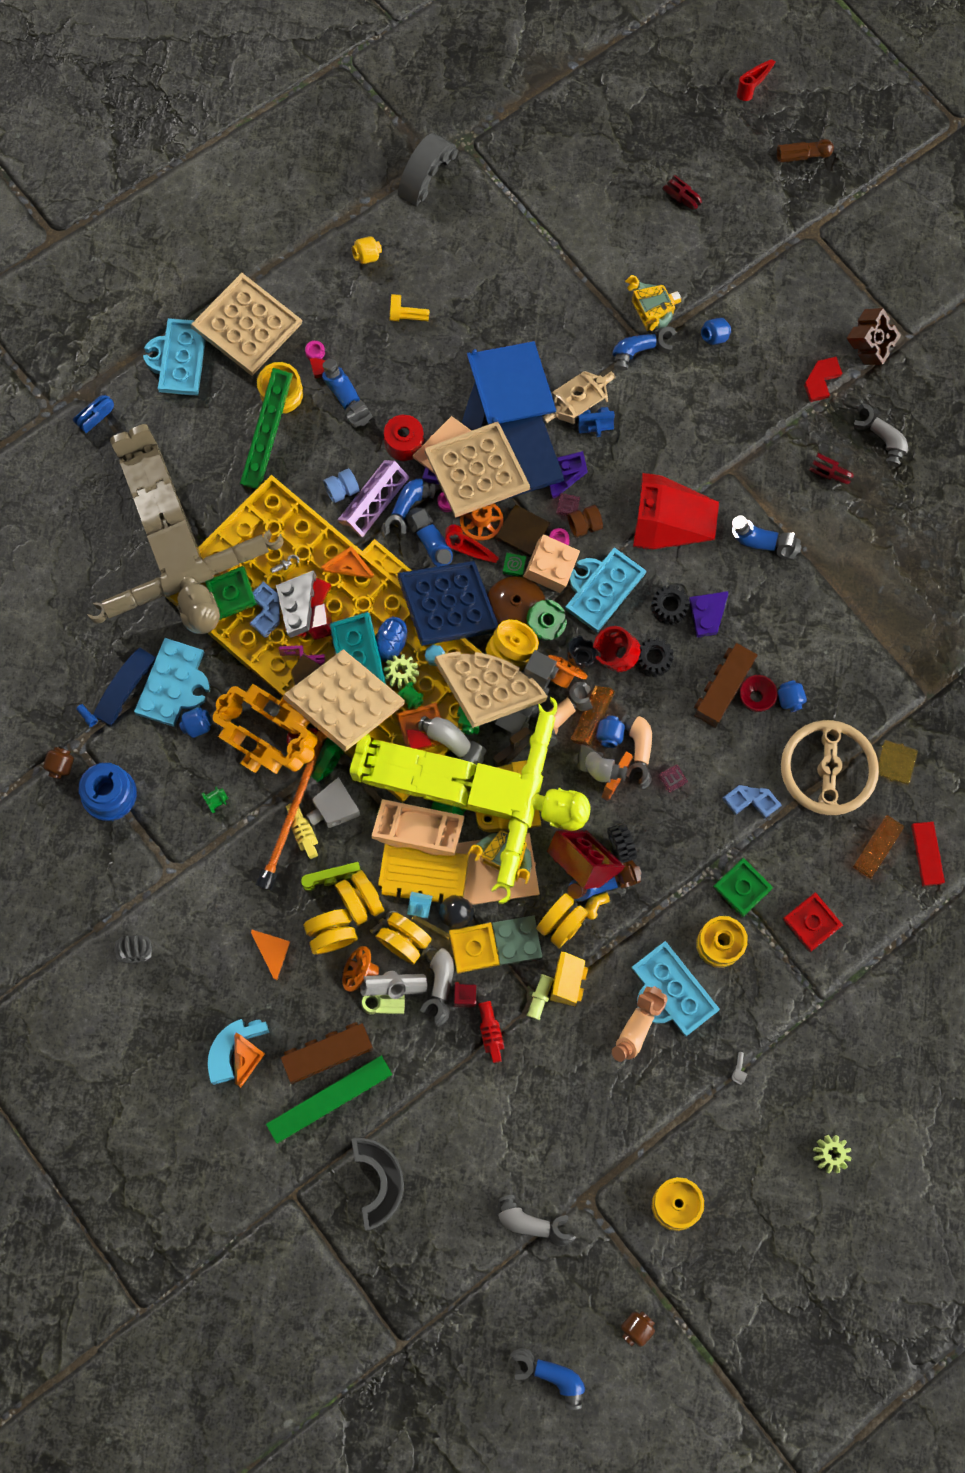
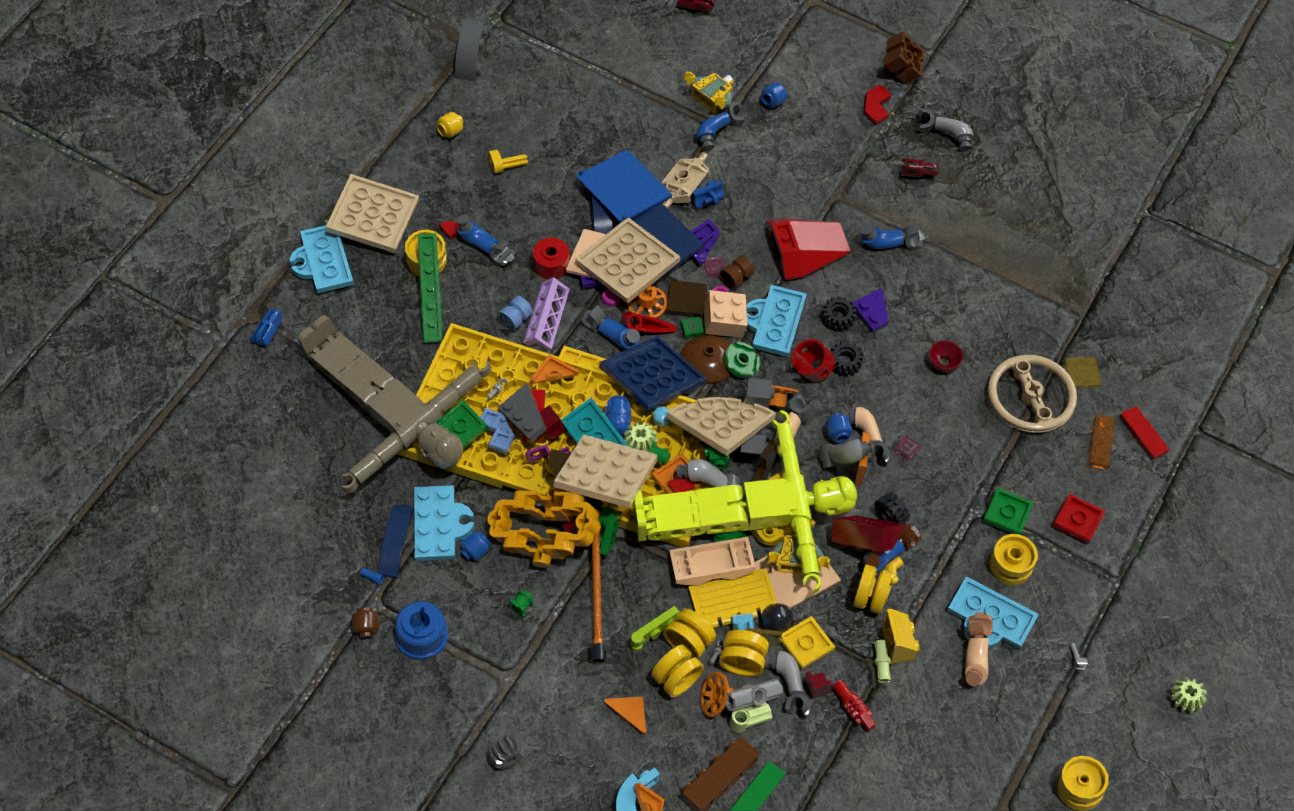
camera: 20 degrees left, 15 degrees down
(304, 834) = (614, 603): light yellow hinge -> none
(315, 350) = (439, 216): dark pink tile -> none
(333, 805) = (629, 570): light grey torso -> none
(411, 492) = (578, 299): piece -> none
(513, 643) = (724, 382): yellow wheel -> none
(517, 940) = (841, 623): sand green plate -> none
(581, 652) = (783, 374): black hair -> none
(589, 721) = (817, 424): clear orange plate -> none
(725, 685) = (915, 359): reddish brown brick -> none
(760, 798) = (987, 438): medium blue tile -> none
(791, 696) = (974, 349): blue head -> none

